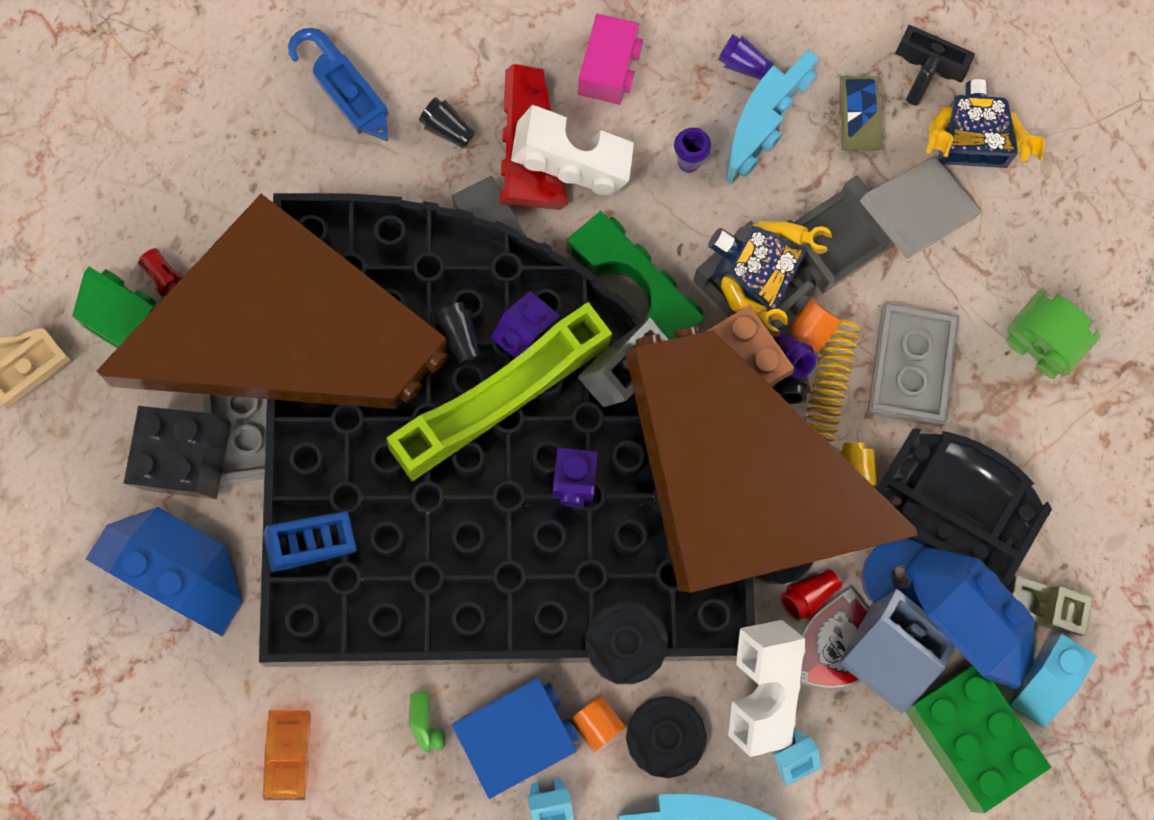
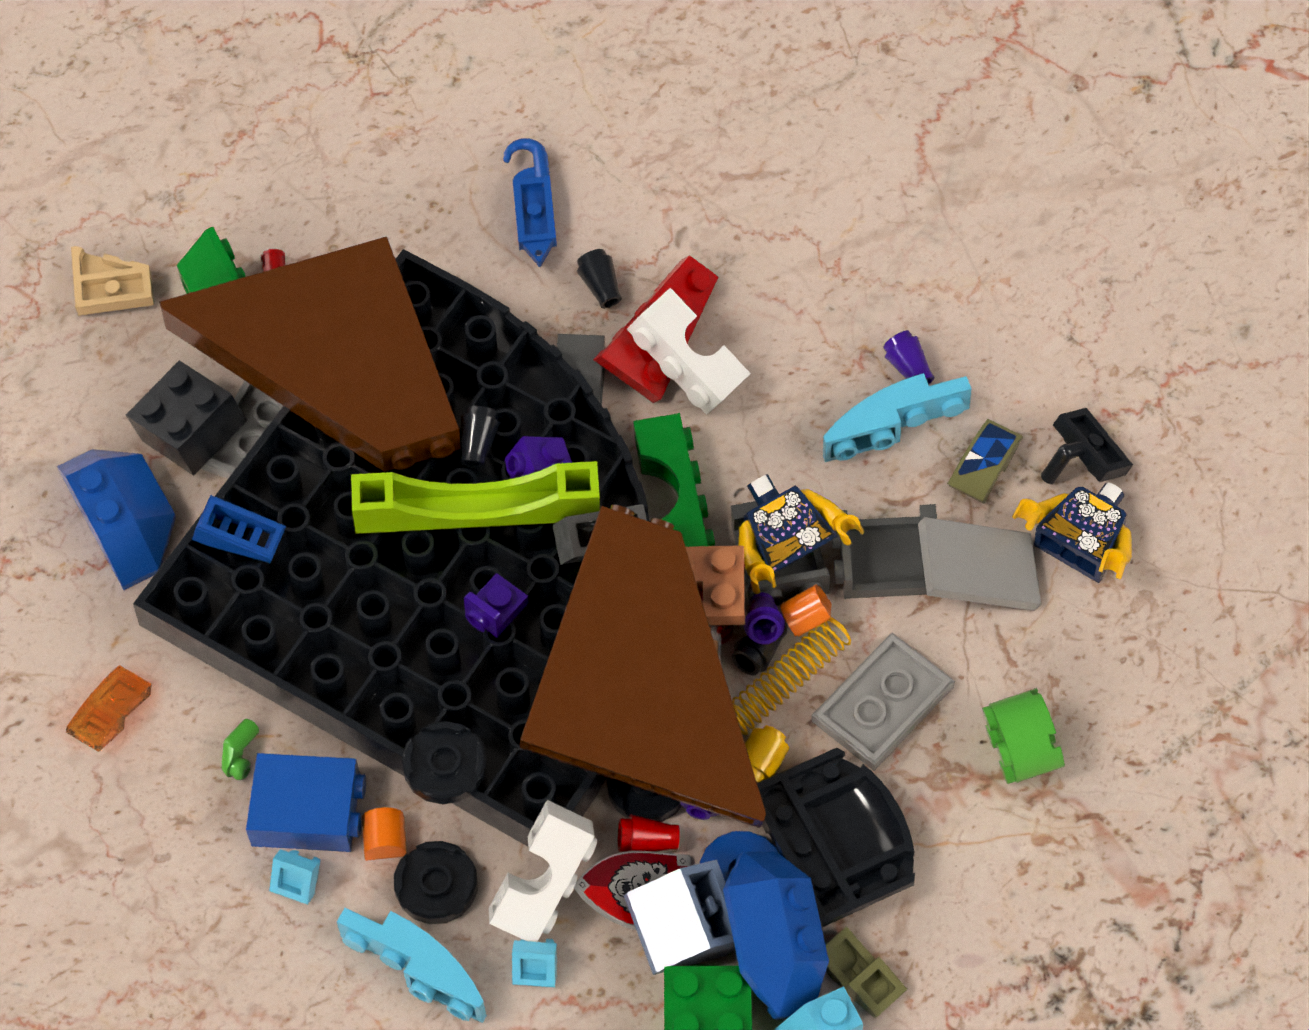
camera: 40 degrees right, 15 degrees down
(608, 59) = (782, 297): dark pink piece -> none
(691, 148) = (799, 405): dark purple cone -> none

